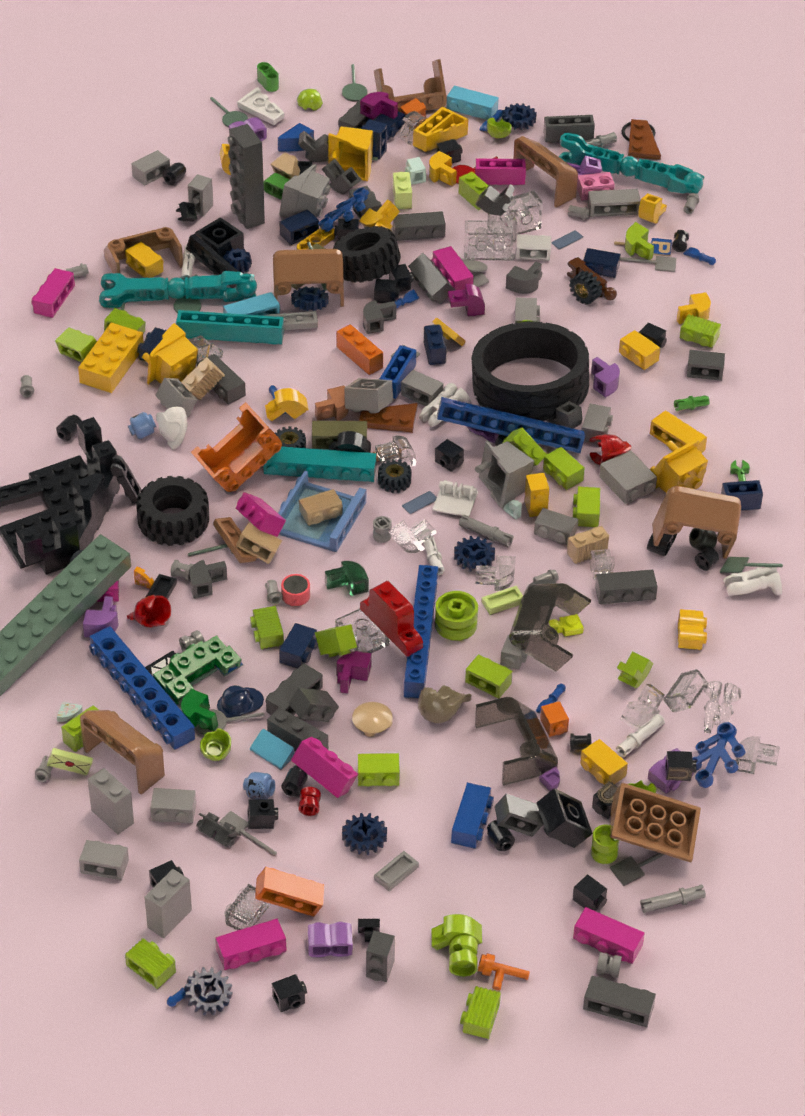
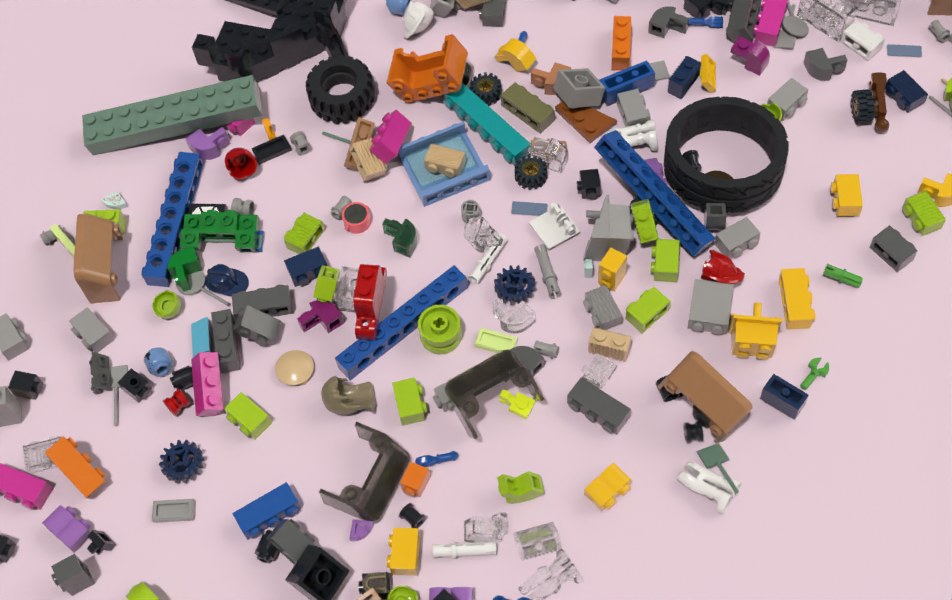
camera: 50 degrees right, 15 degrees up
(110, 801) = (48, 295): light grey brick -> none
(204, 575) = (306, 157): dark grey brick -> none
(351, 442) = (523, 123): black brick -> none
(605, 377) = (792, 204): medium lavender brick -> none
(654, 334) = (874, 190): black brick -> none

